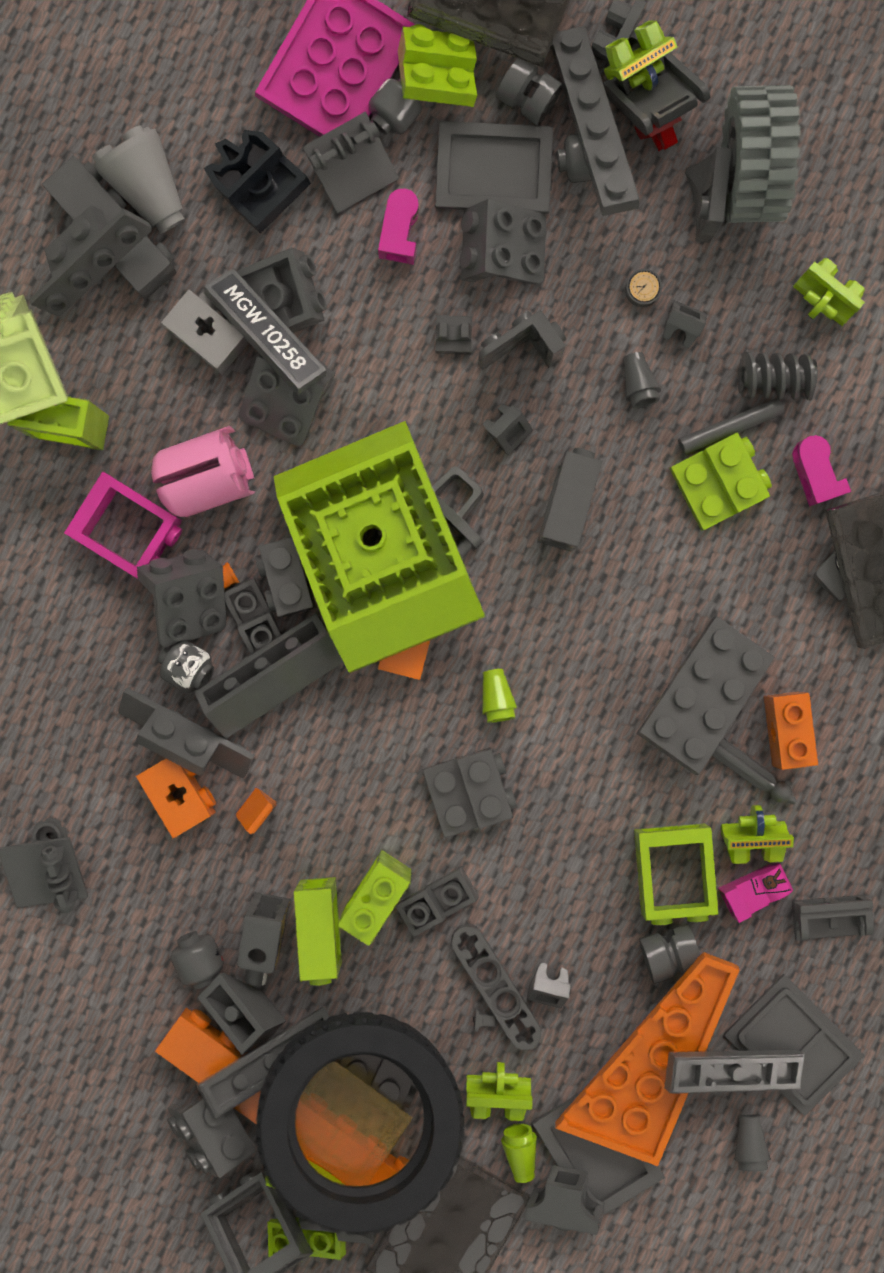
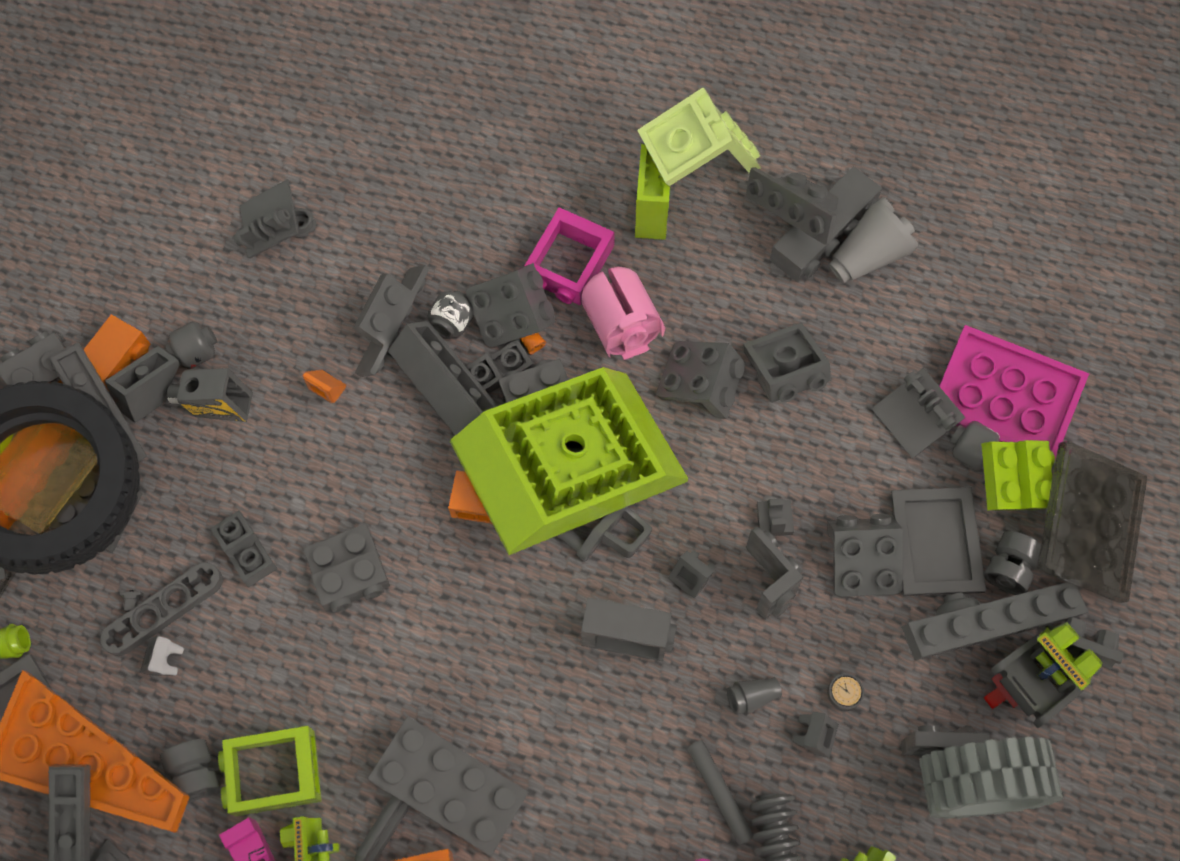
camera: 85 degrees right, 20 degrees down
(175, 813) = (322, 321): orange brick -> none
(186, 323) = (751, 290): light grey brick -> none
(256, 178) = (889, 336): black plate -> none
(265, 331) = (751, 348): tile -> none
(318, 930) = (216, 438): lime window -> none
(375, 898) = (249, 487): lime window -> none
(400, 215) = (866, 457): dark pink leg -> none
(498, 700) = (436, 585): lime cone -> none
(498, 1091) = (61, 617): lime hips -> none
(721, 480) = (664, 785): lime plate -> none

